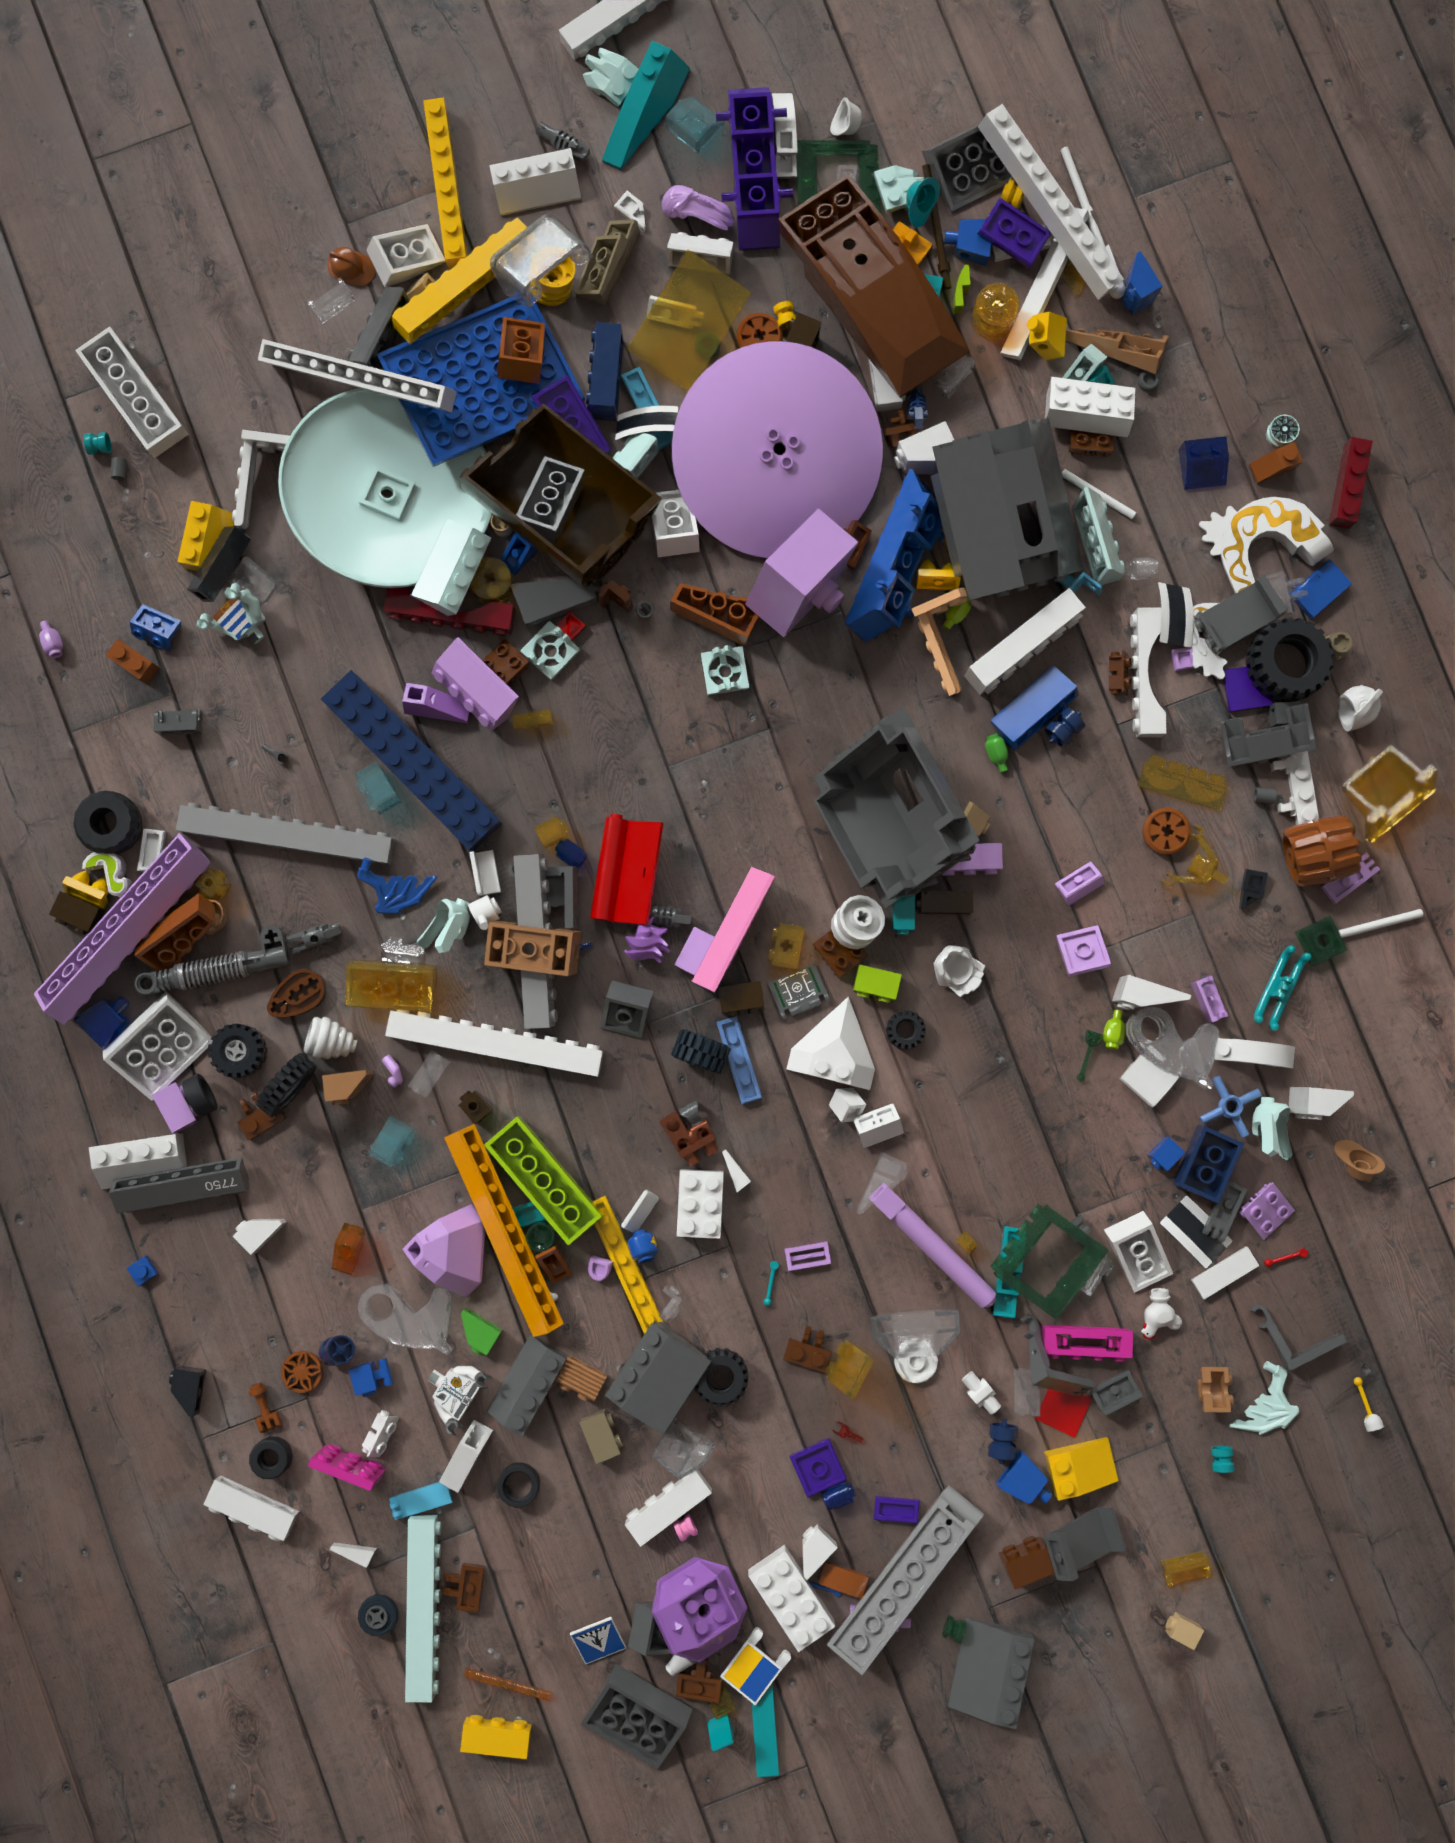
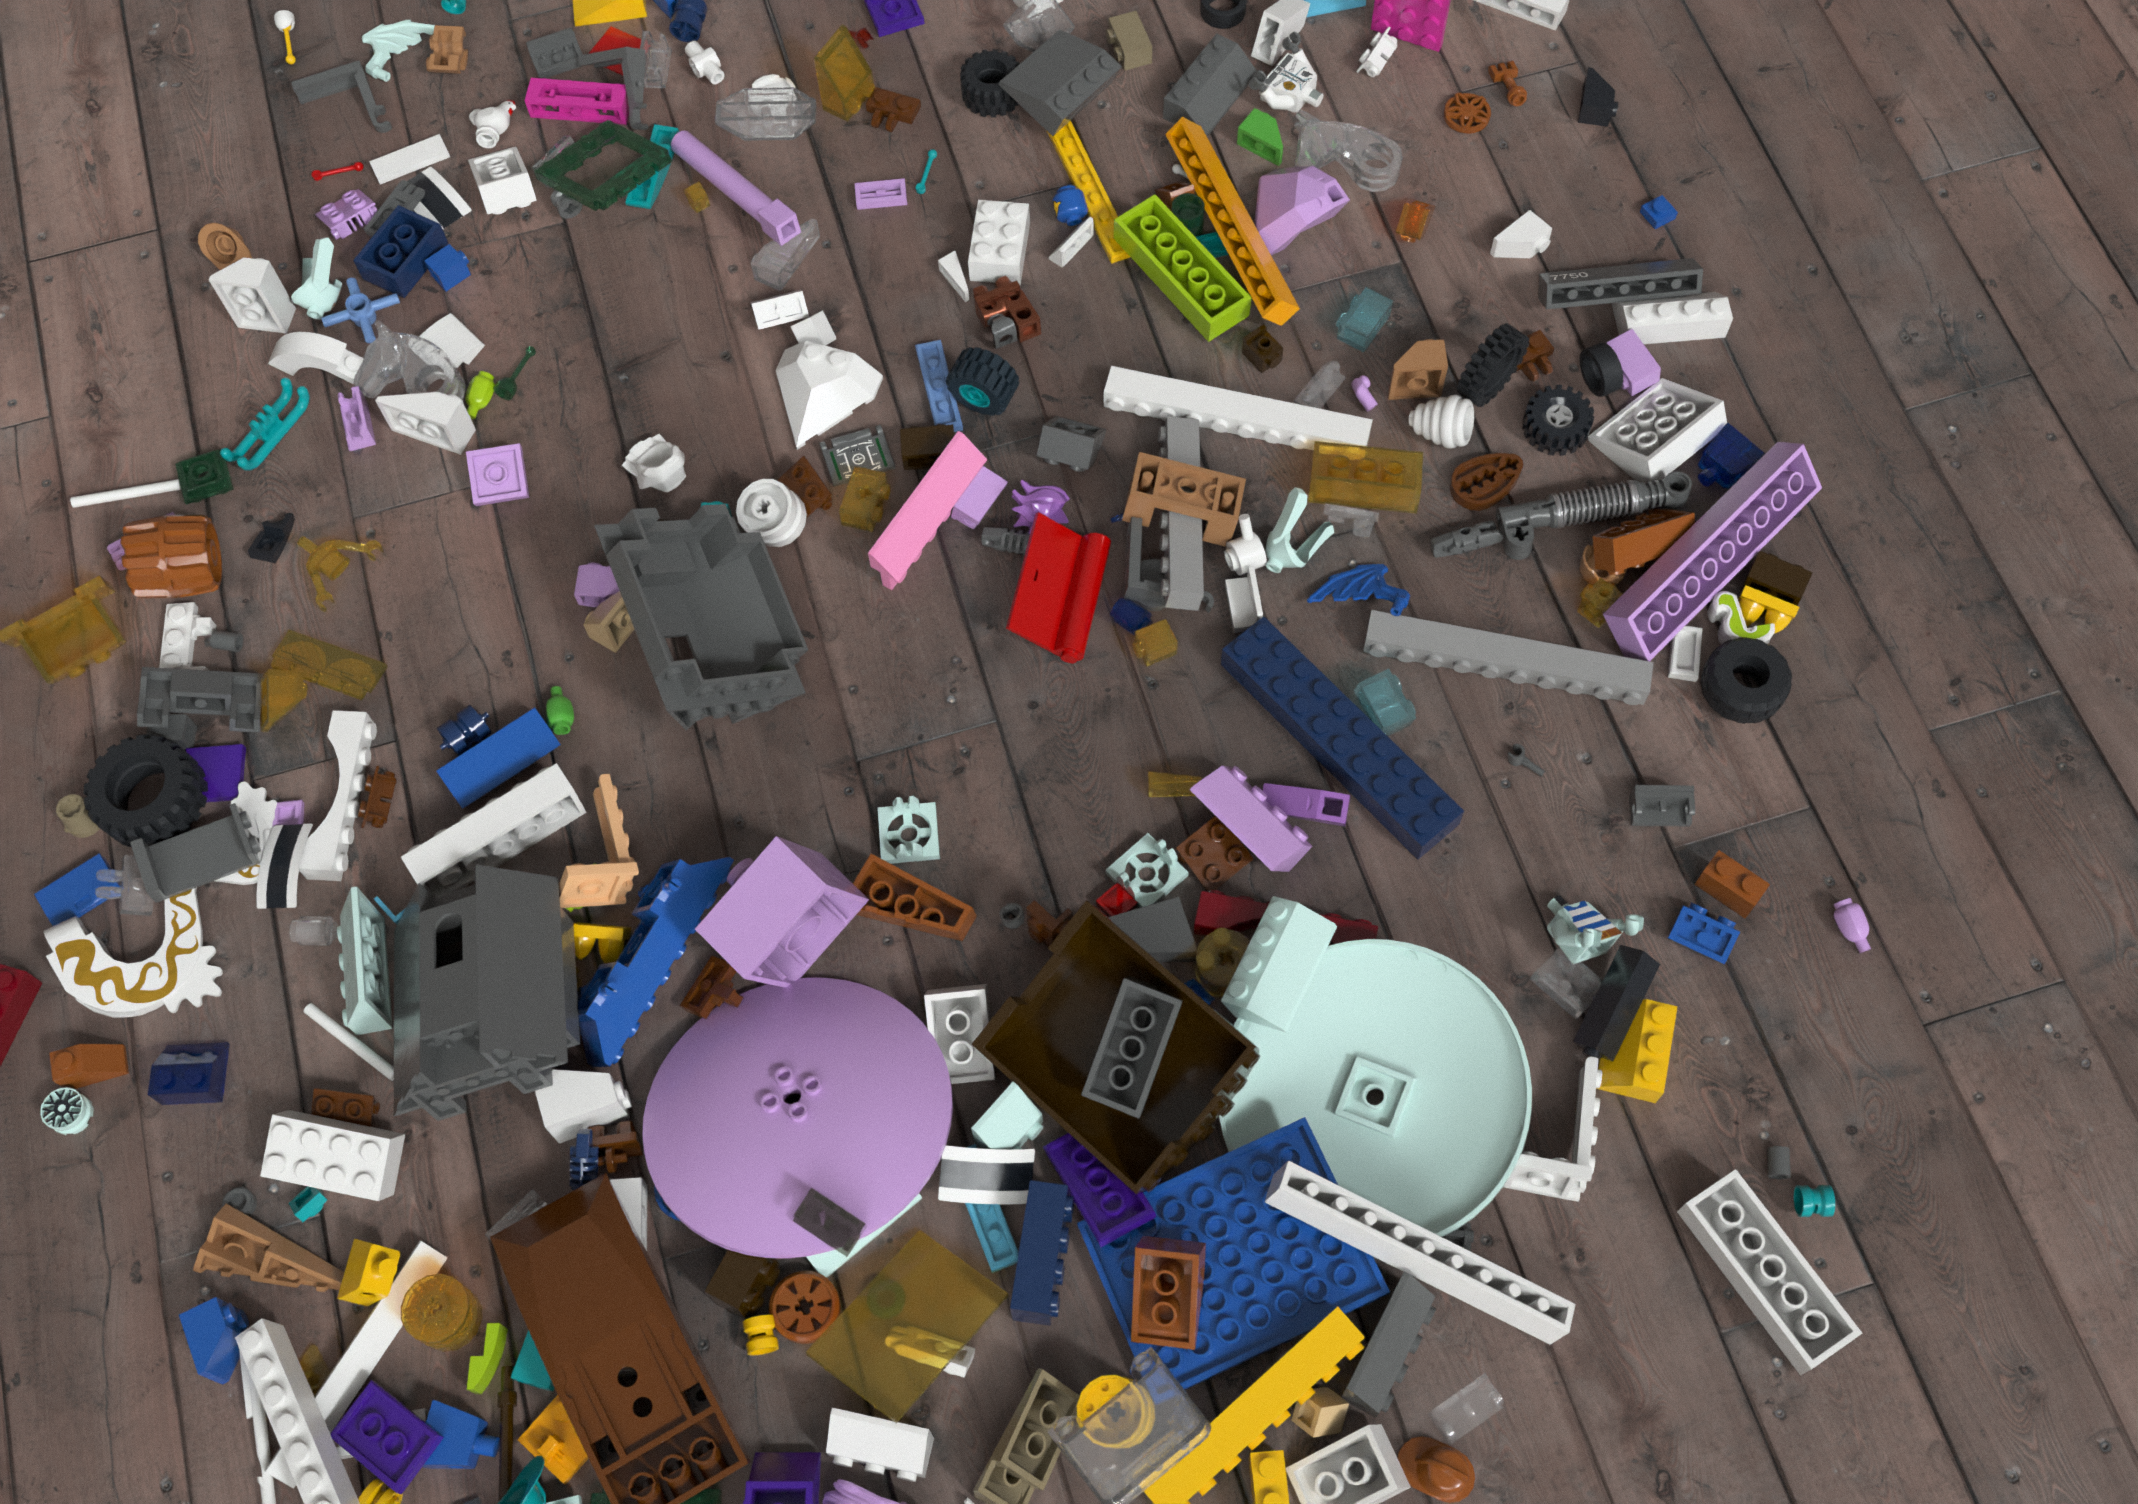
camera: 175 degrees left, 20 degrees down
(257, 1463) = (1497, 25): black tyre -> none
(336, 1350) = (1426, 119): dark blue wheel -> none
(366, 1377) = (1392, 101): blue brick -> none
(581, 1378) = (1145, 90): medium nougat brick -> none
(599, 1268) = (1121, 190): lavender tile -> none
(671, 1308) = (1041, 151): clear bracket -> none
(740, 359) = (829, 1222): none -> clear smoke hinge
(876, 983) = (758, 454): lime brick -> none
(915, 1020) = (731, 393): black tyre -> none
(1080, 883) = (486, 556): lavender slope -> none
(1085, 364) = (328, 1221): light aqua slope -> none
(1178, 826) = (369, 620): dark orange wheel -> none
(1209, 744) = (280, 695): none -> clear yellow slope
(1359, 707) = (73, 733): white helmet -> none

